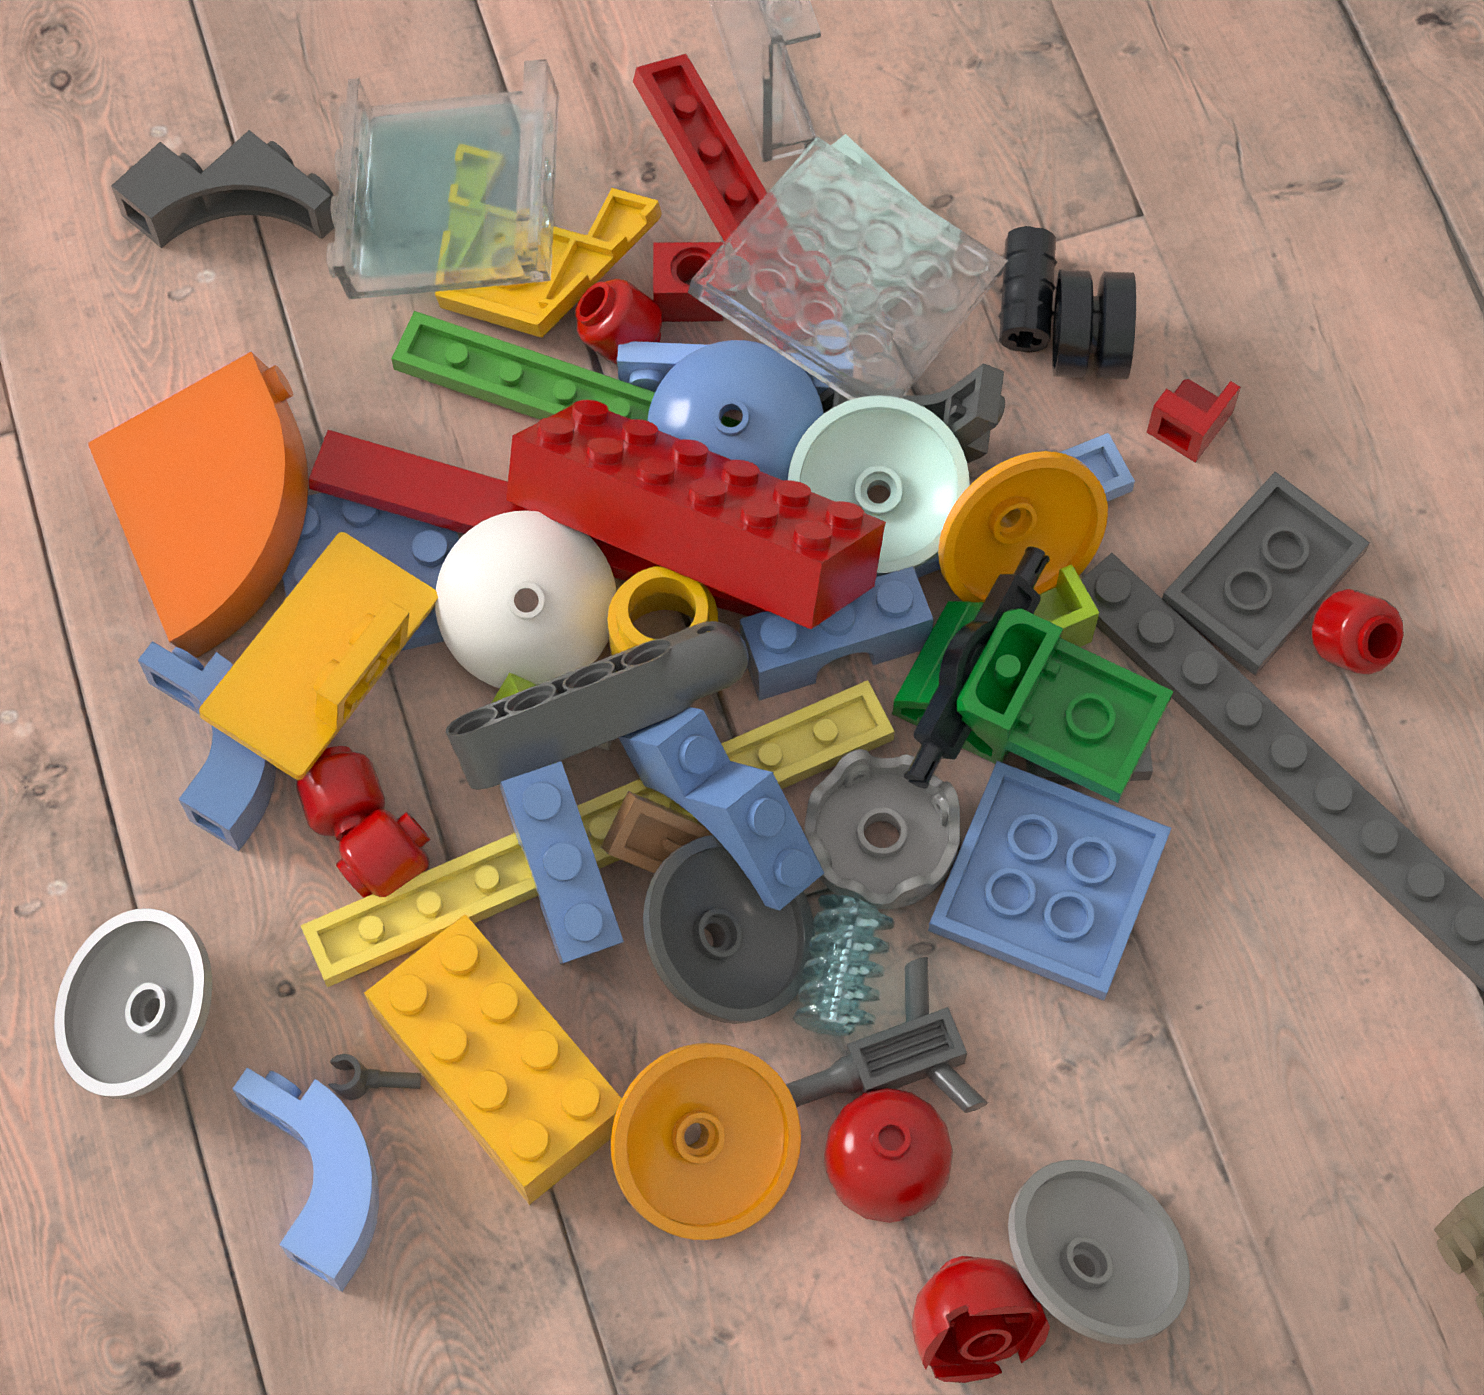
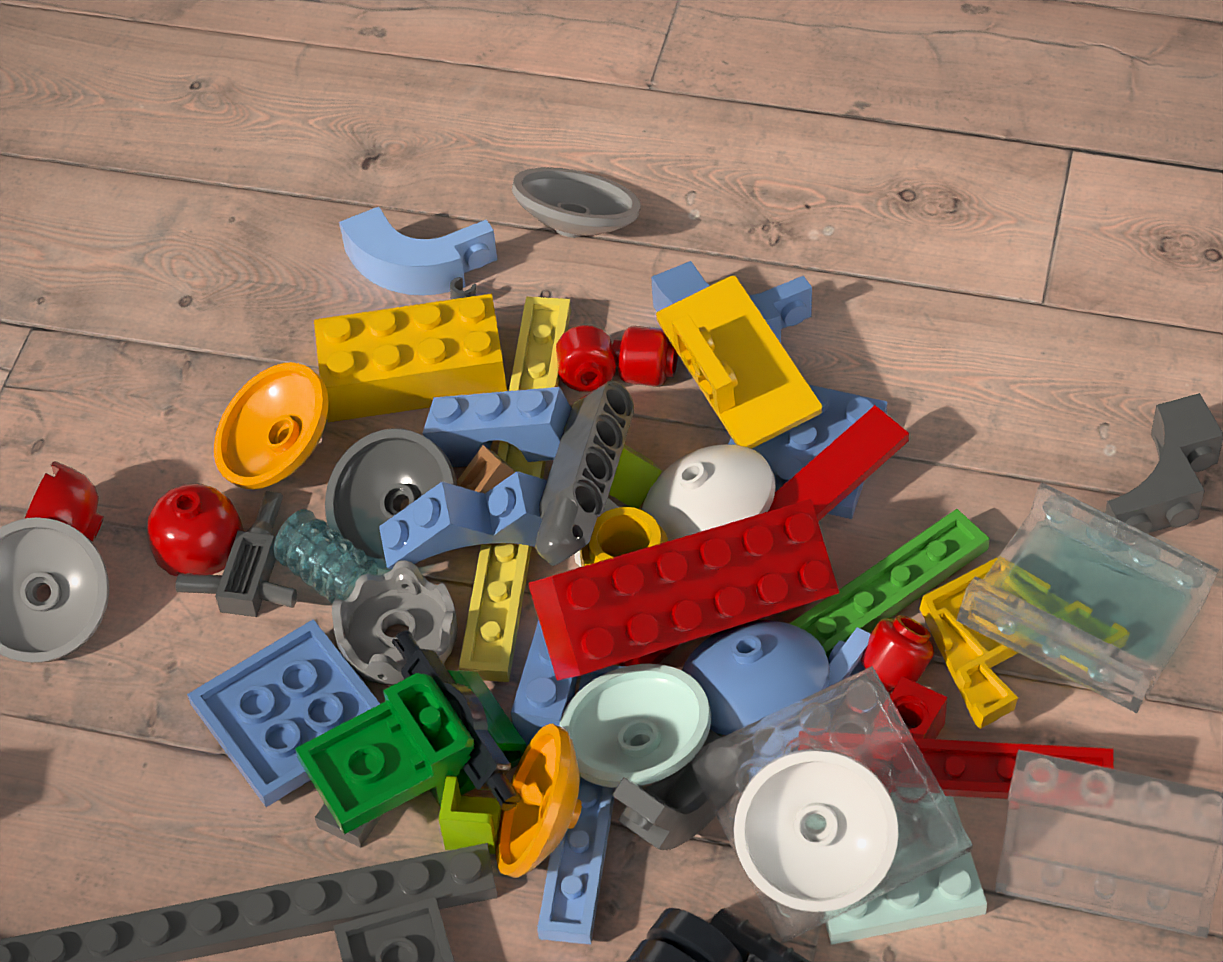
camera: 125 degrees right, 15 degrees down
(210, 498) = (902, 356): orange brick -> none
(919, 226) = (825, 865): none -> white dish

